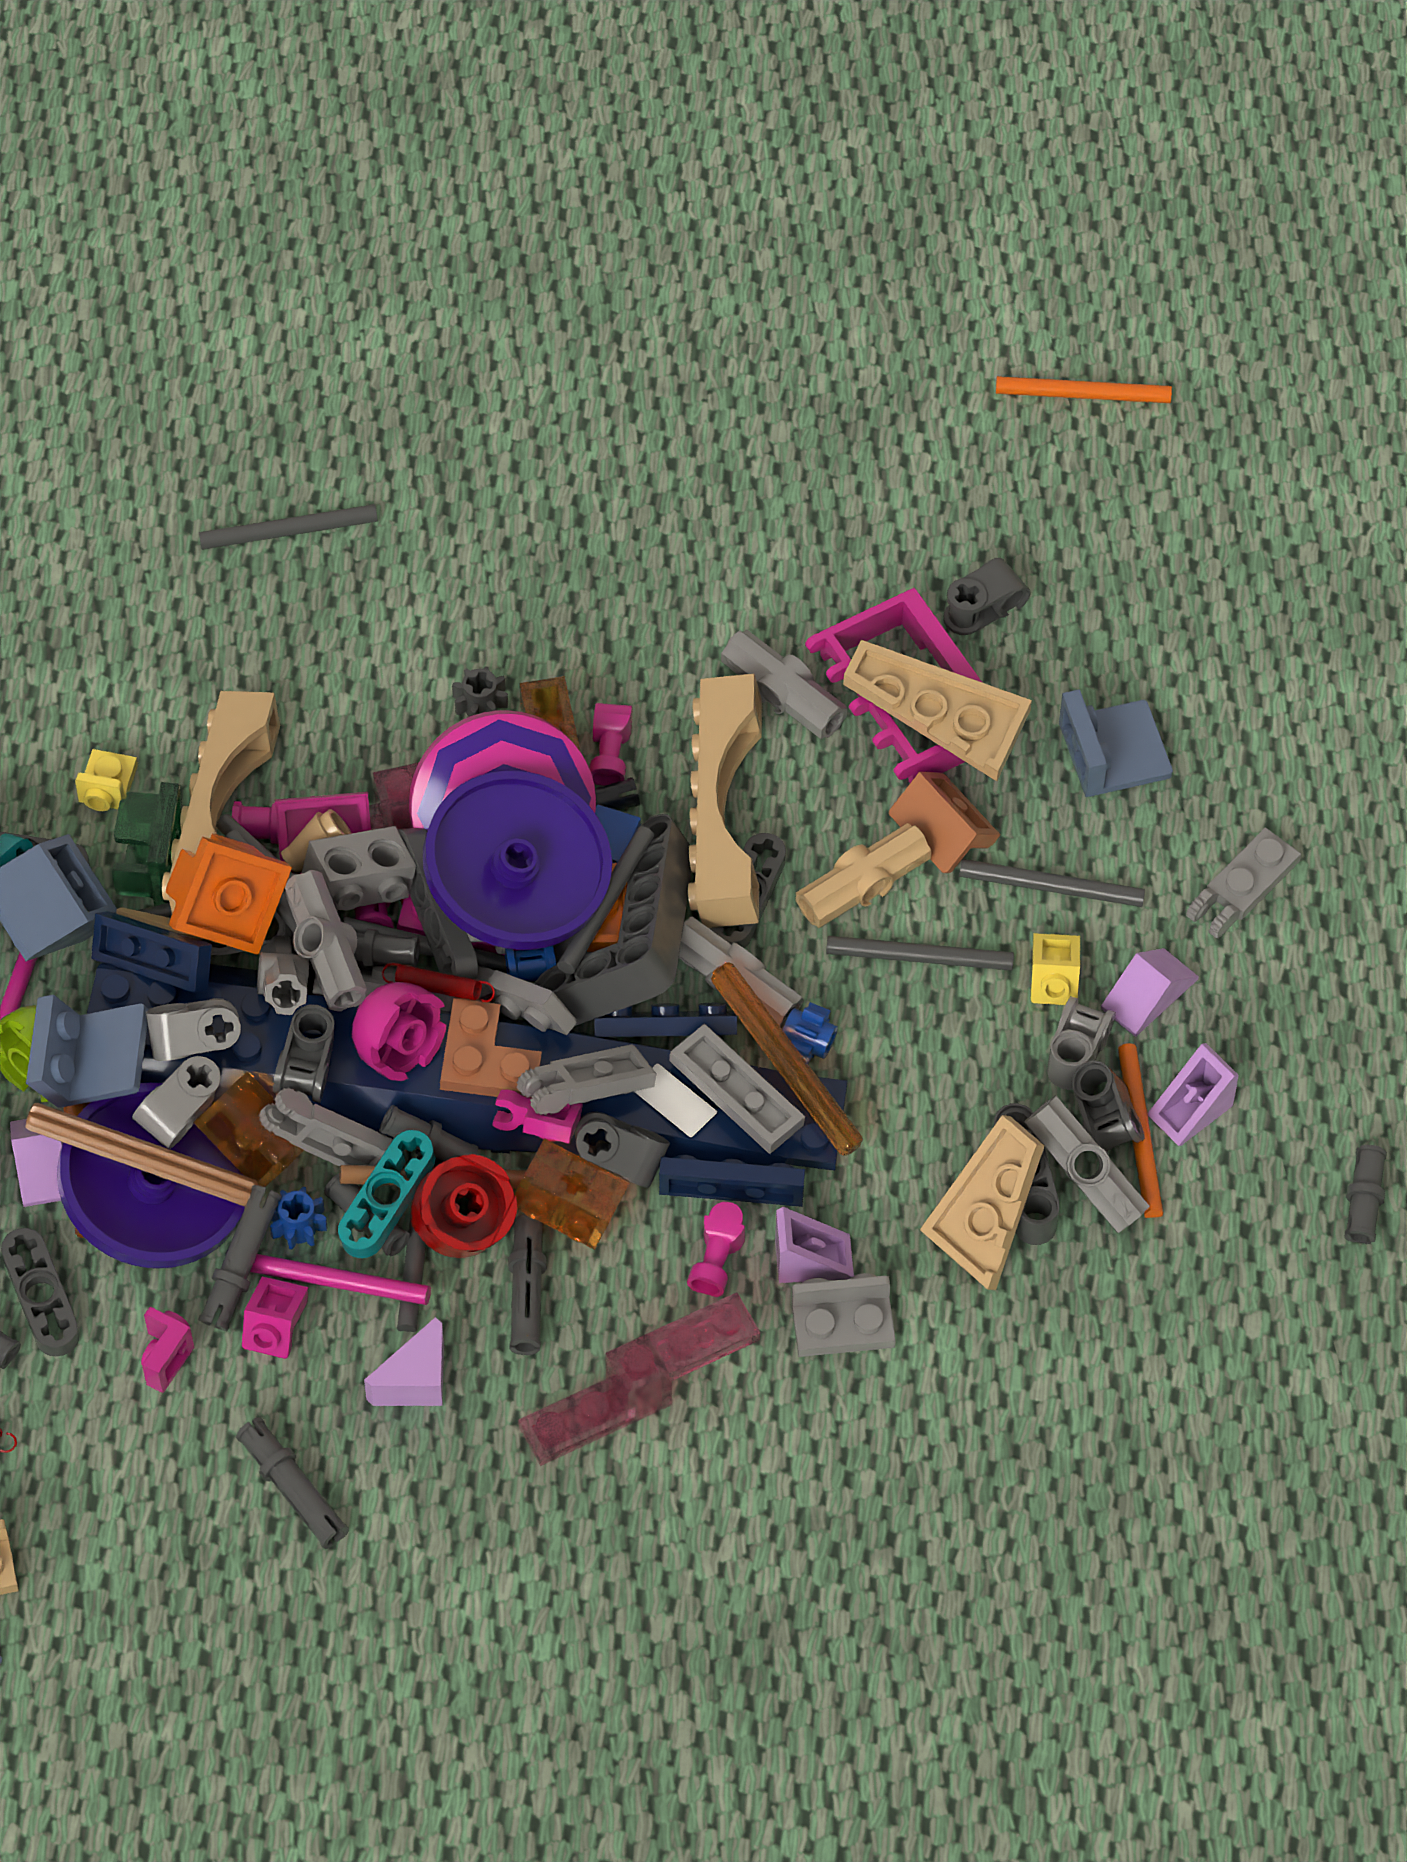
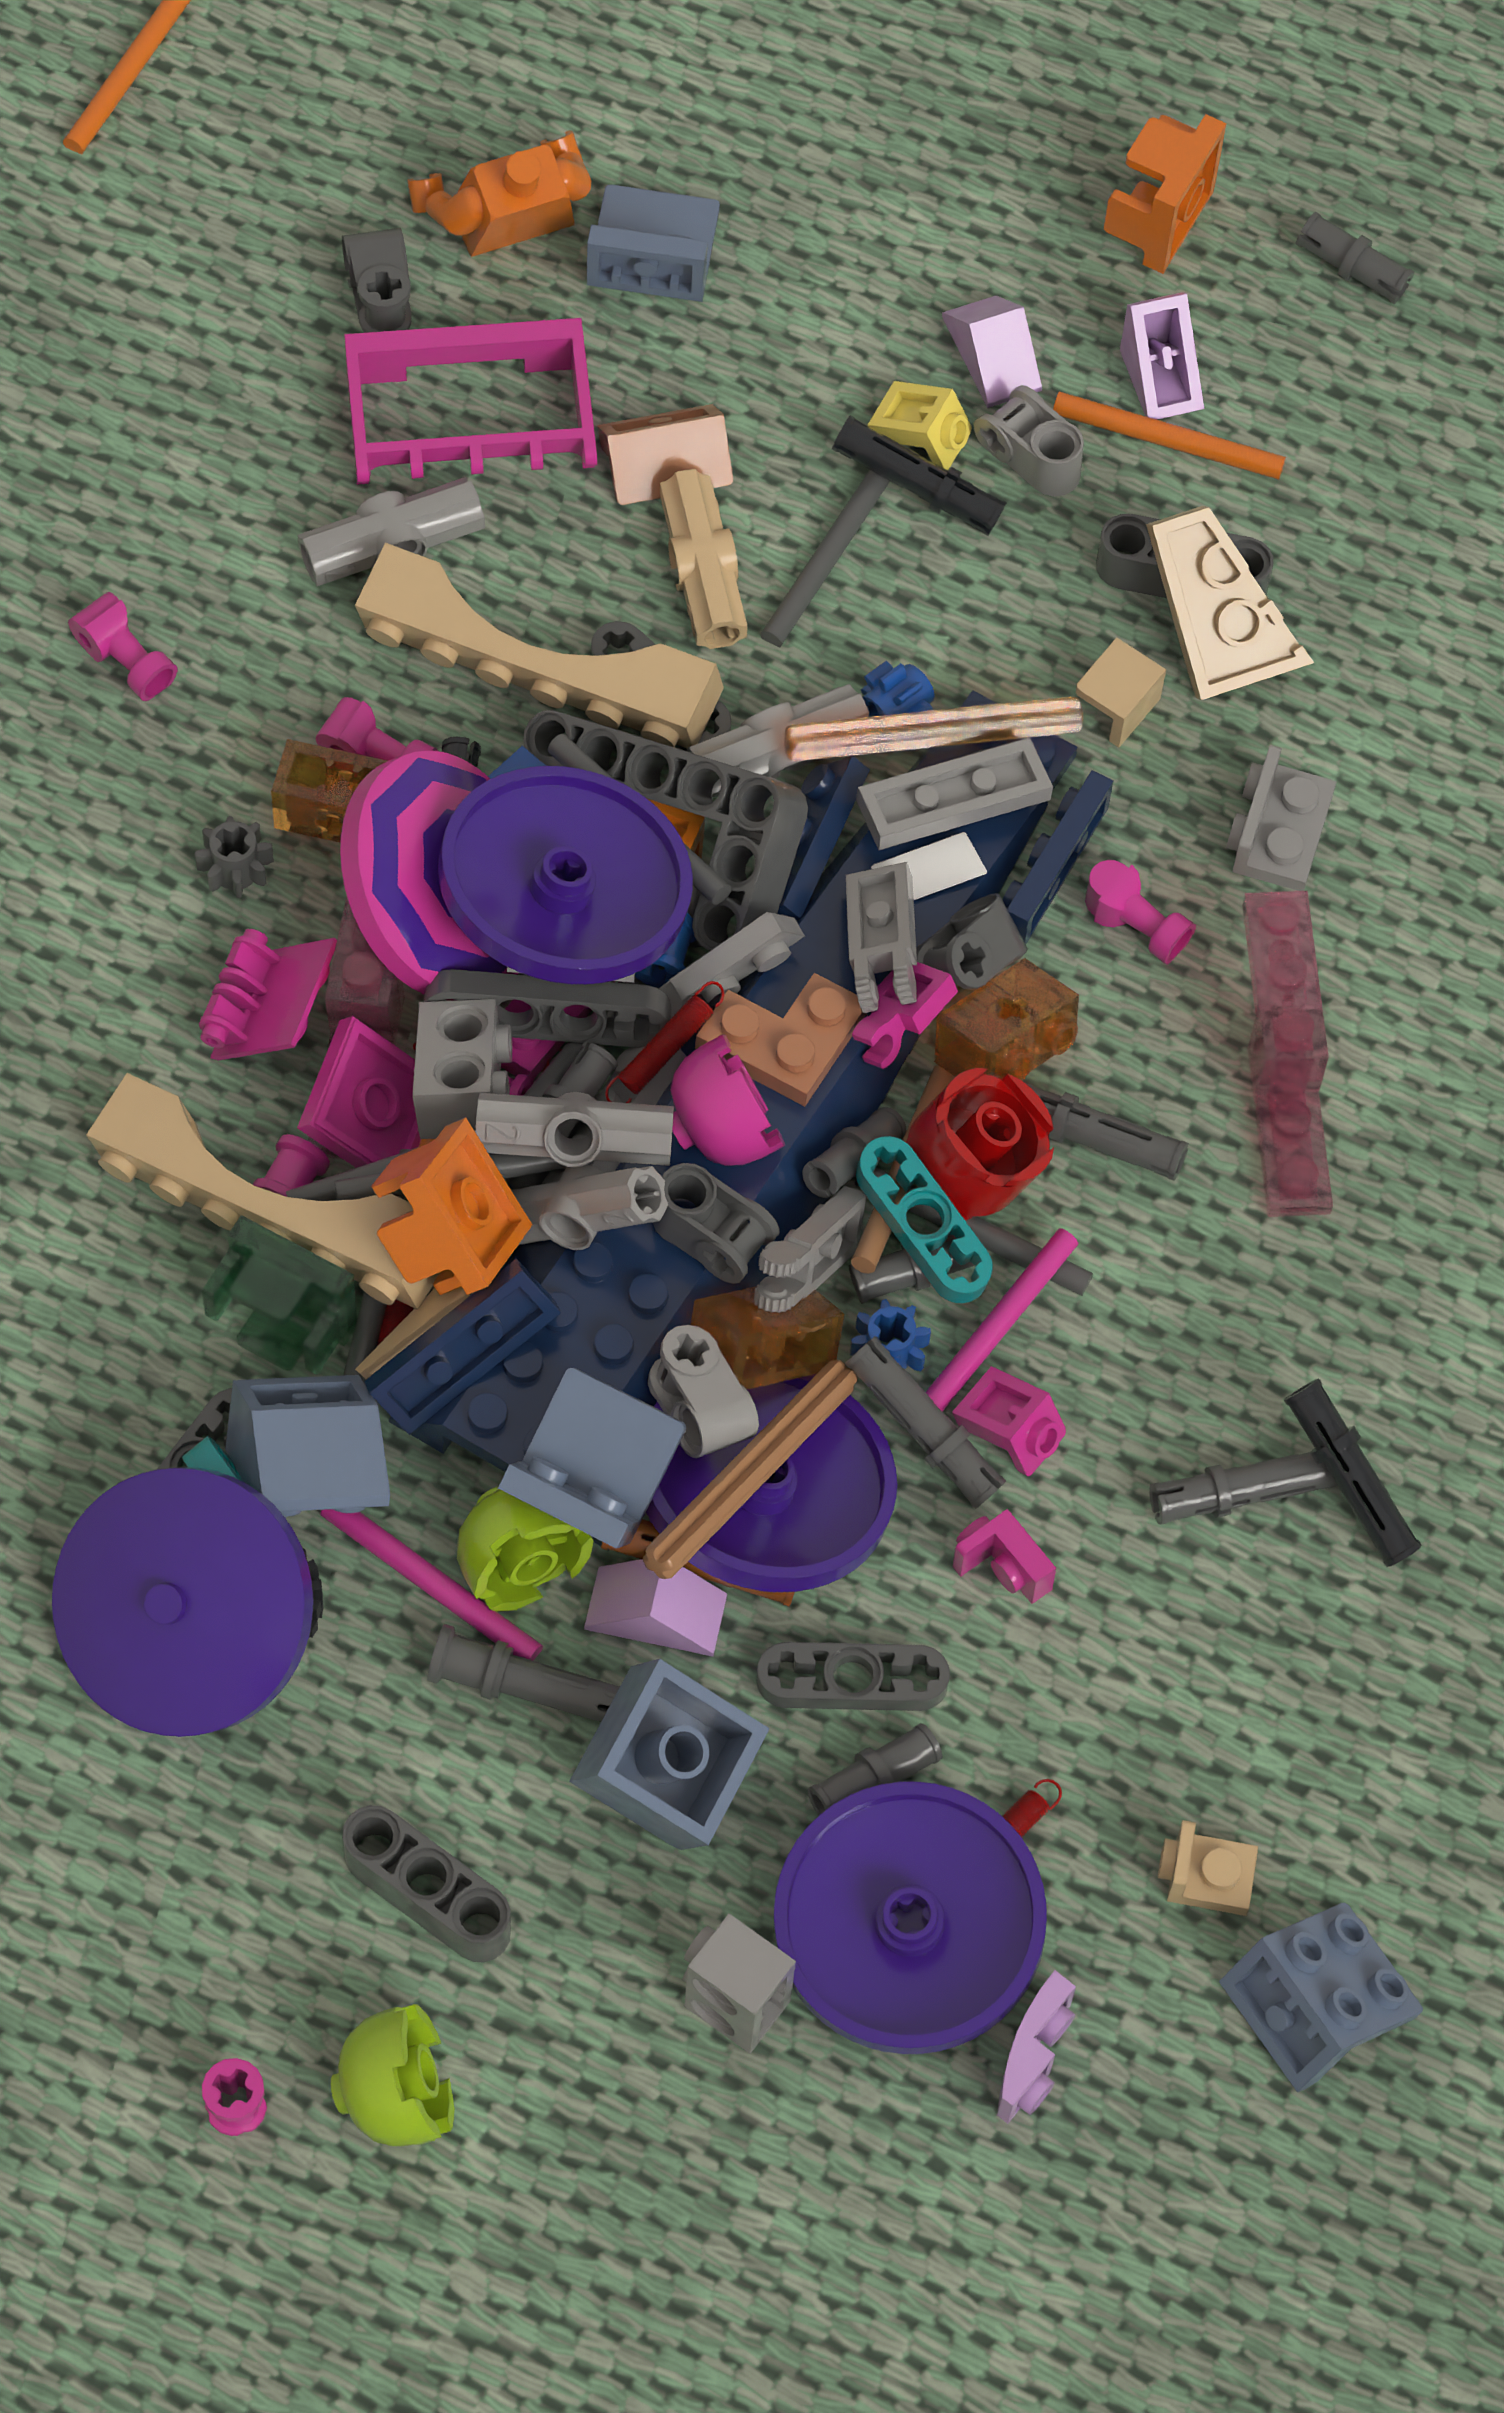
camera: 70 degrees left, 5 degrees up
(105, 780) = (129, 1328): light yellow bracket -> none
(184, 1029) = (617, 1336): light grey piece -> none
(315, 1545) = (1352, 1472): none -> black pin
(319, 827) = (387, 1103): tan cone -> none
(356, 759) = (264, 996): none -> dark pink hinge
(412, 1373) = (1160, 1286): lavender slope -> none
(615, 556) = (105, 632): none -> dark pink leg
(810, 1249) = (1181, 823): lavender slope -> none
(891, 1170) = (1123, 687): none -> tan panel
(948, 708) = (543, 365): tan wing -> none
(1003, 996) = (927, 480): none -> black pin
(1052, 882) = (801, 382): dark grey bar -> none
(1096, 646) = (509, 196): none -> orange torso
(1108, 1186) = (1225, 486): light grey piece -> none
(1110, 1114) = (1147, 448): dark grey piece -> none
(1245, 881) = (895, 197): light grey hinge -> none
(1339, 1041) = (1187, 166): none -> orange panel

